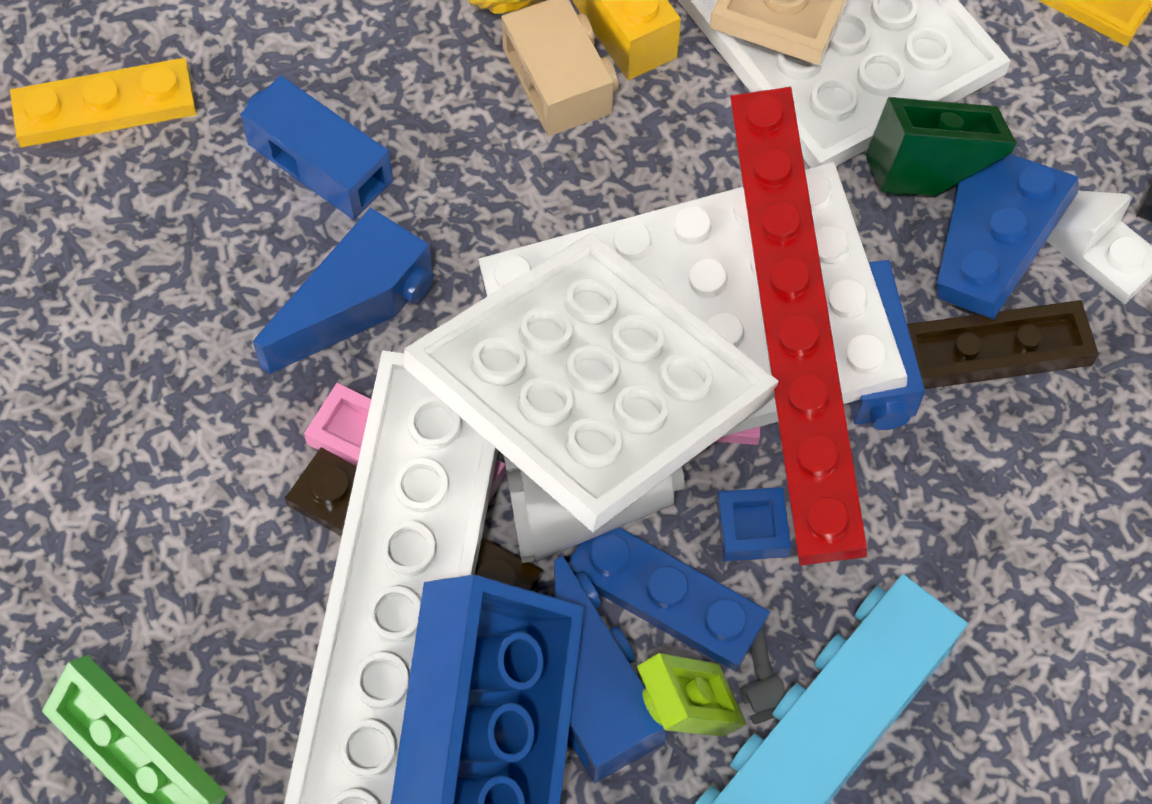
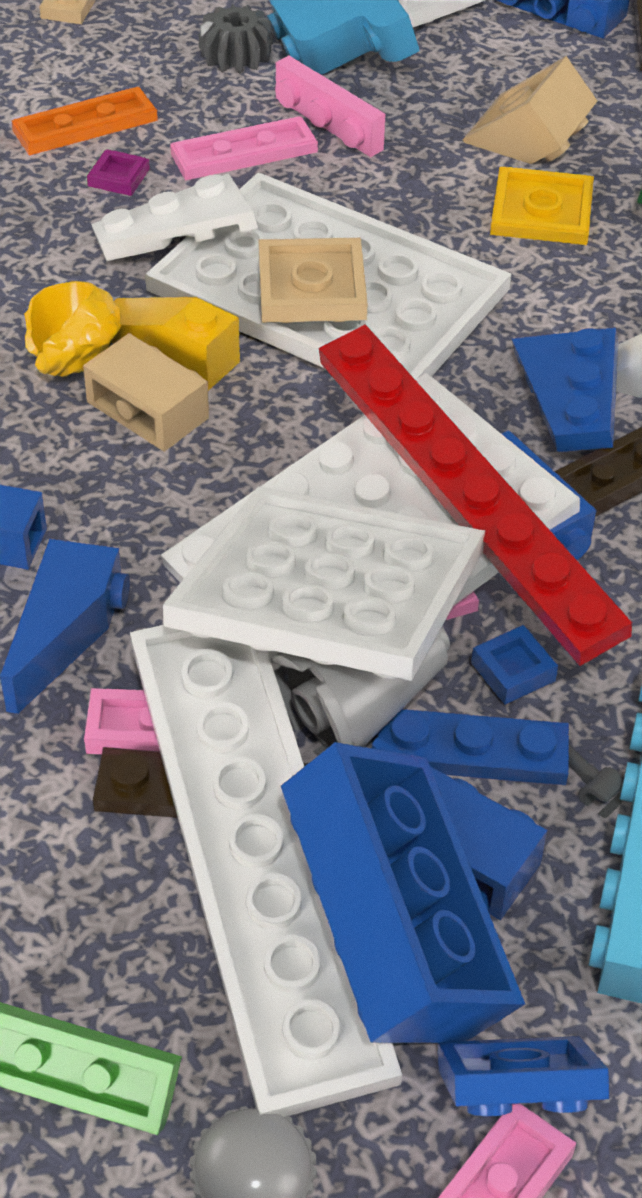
camera: 25 degrees left, 15 degrees down
(689, 696) = (548, 803): lime plate -> none
(935, 144) = (490, 345): dark green slope -> none

